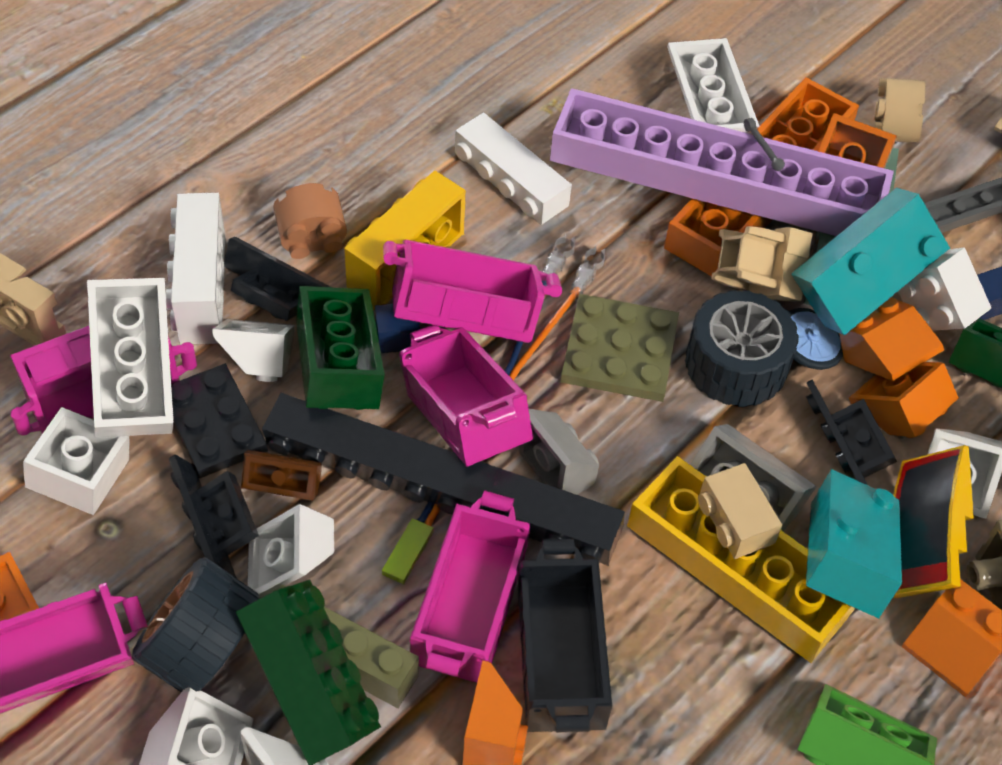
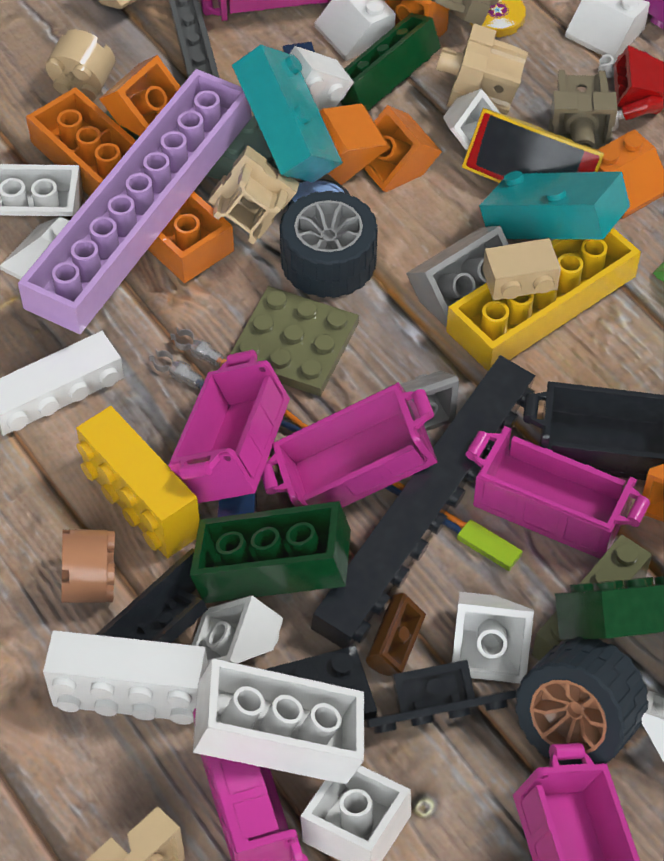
camera: 75 degrees left, 0 degrees up
(750, 126) = (116, 153): dark grey hinge -> none
(857, 434) = (430, 191): black bracket -> none

